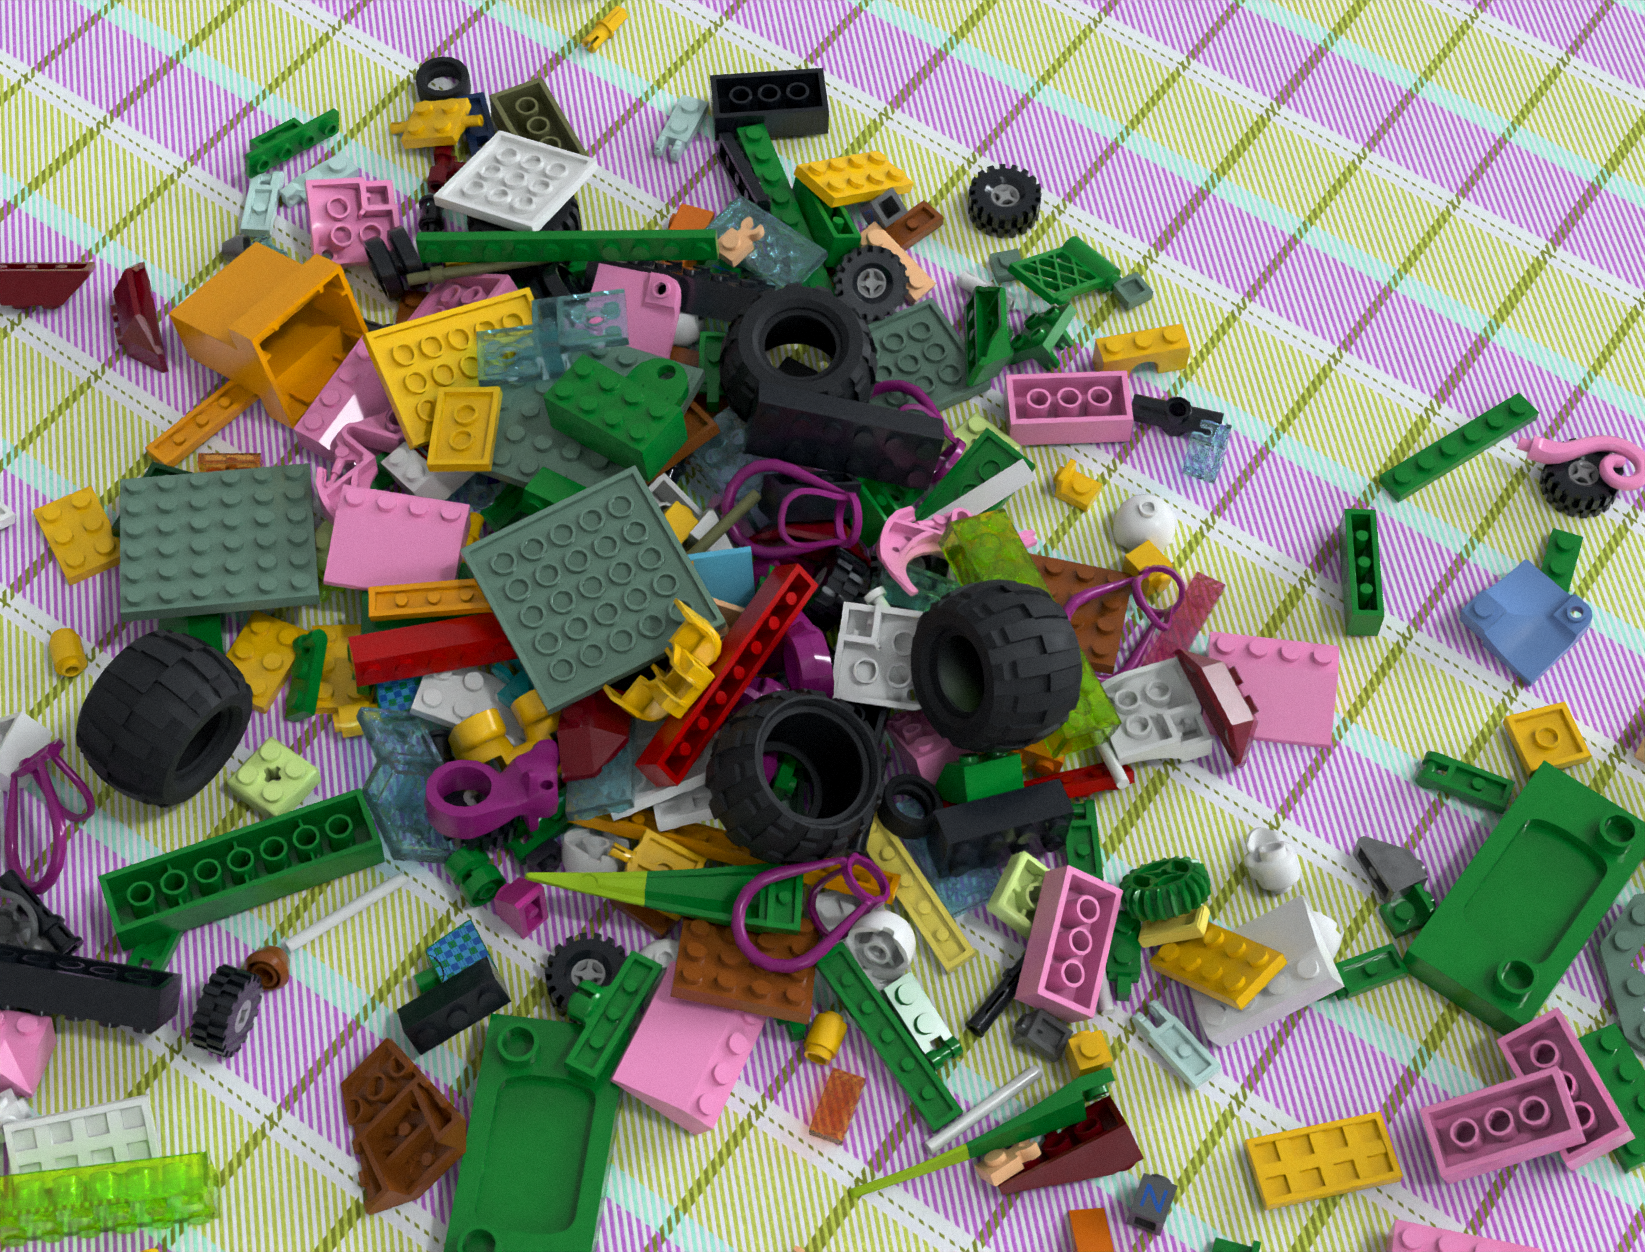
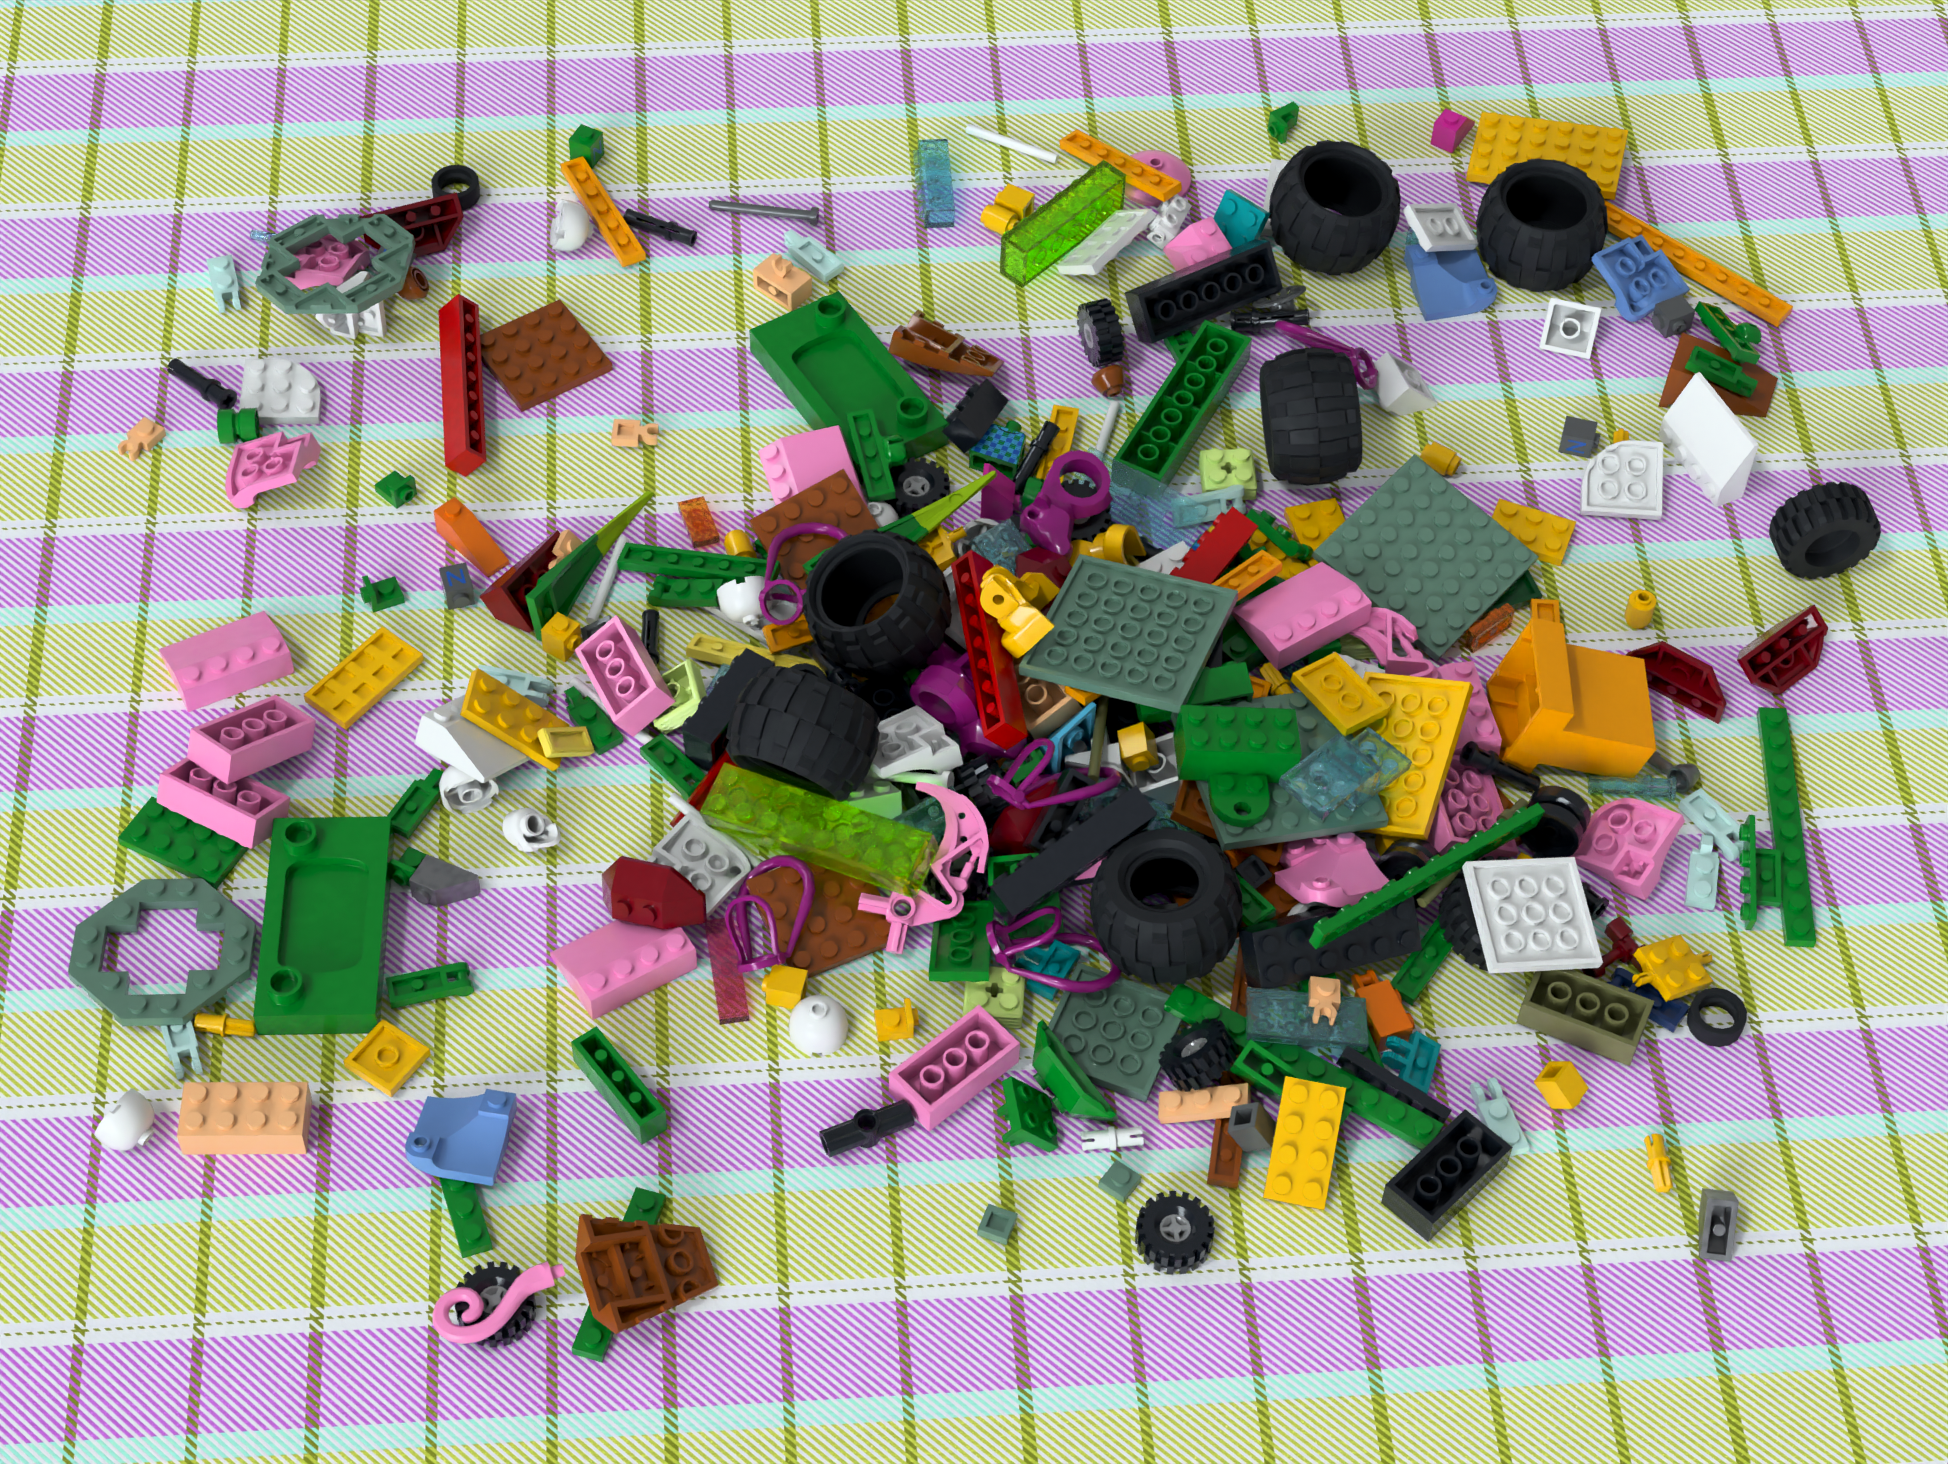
camera: 140 degrees right, 5 degrees down
(91, 390) = (1640, 609): none -> yellow brick
(199, 178) = (1786, 826): none -> green plate
(330, 754) = (1216, 502): none -> light aqua plate
(400, 930) = (1066, 420): none -> yellow plate
(430, 922) = (1039, 449): none -> black pin
(617, 106) = (1561, 1085): none -> yellow brick
(702, 190) = (1418, 1059): none -> teal hinge
(992, 490) = (950, 935): white sticker -> none
(1077, 260) = (1050, 1216): green piece -> none
(1163, 345) = (950, 1148): yellow arch -> none
(1165, 889) = (588, 752): green gear -> none
(1207, 452) = (810, 1096): clear light blue hinge -> none
(1451, 413) = (639, 1268): none -> dark orange wedge

